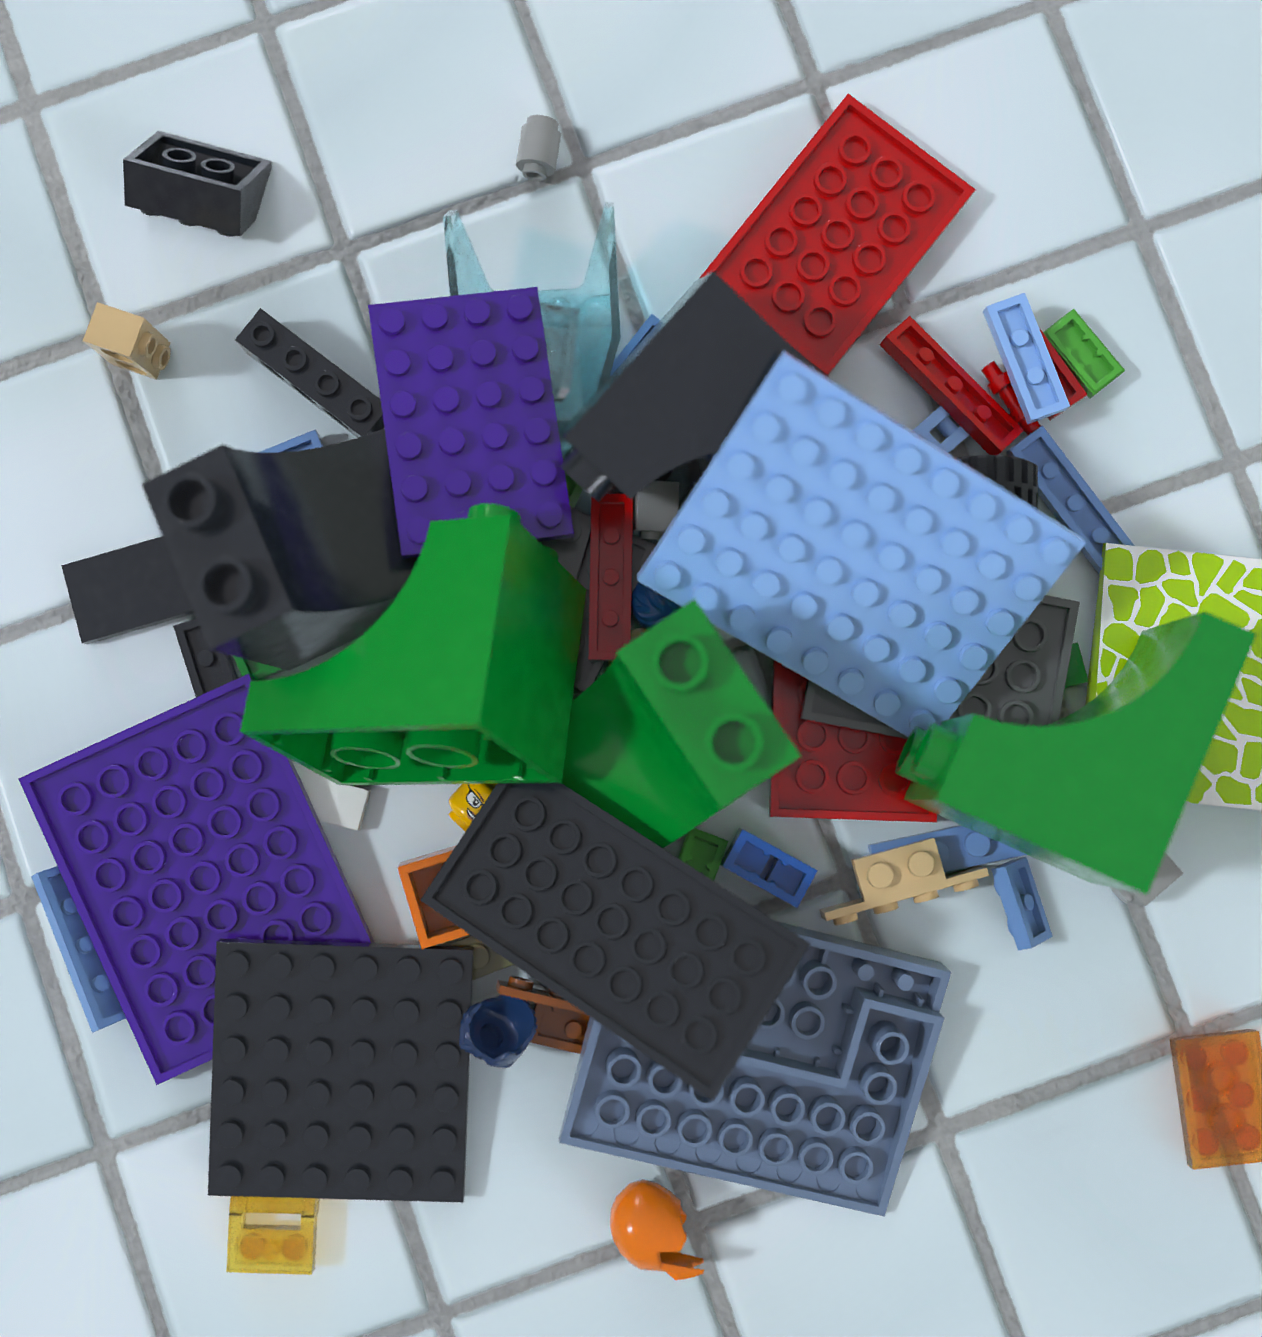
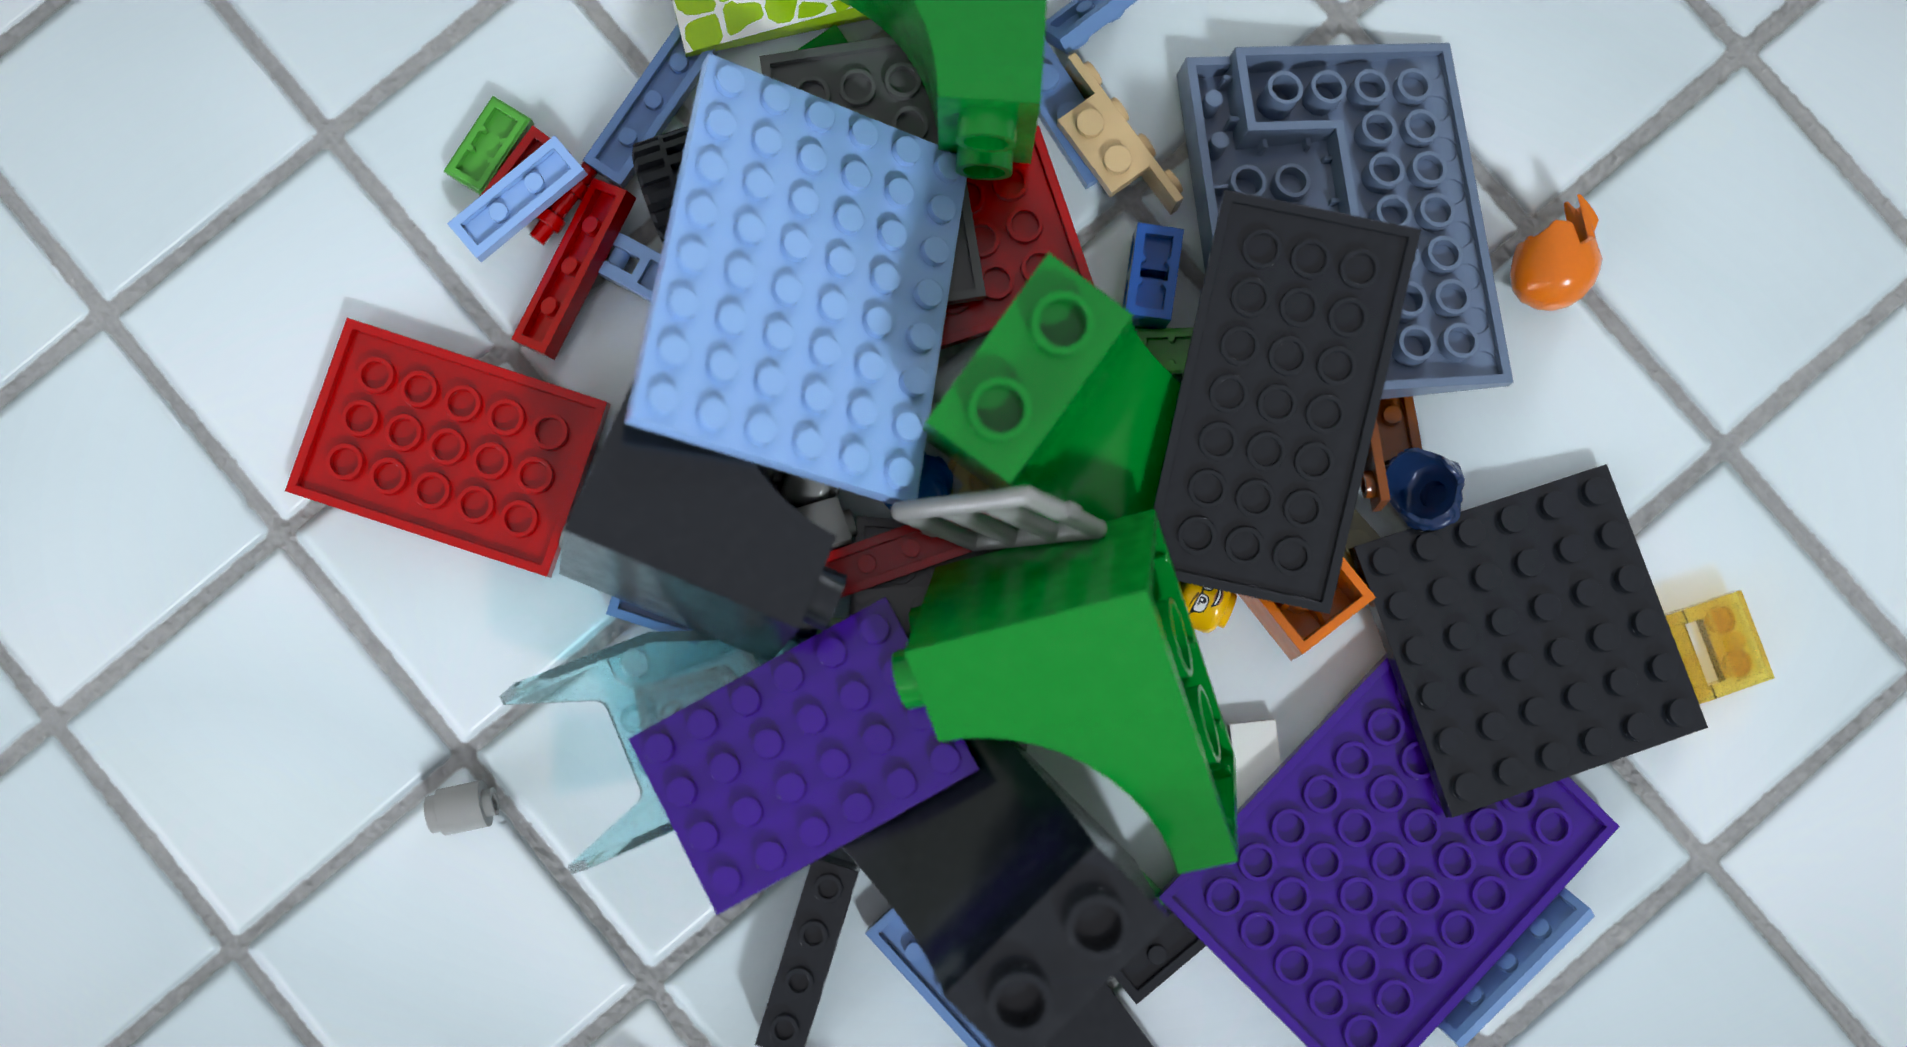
camera: 115 degrees left, 0 degrees up
(598, 644) = (1004, 505): none -> light grey bar

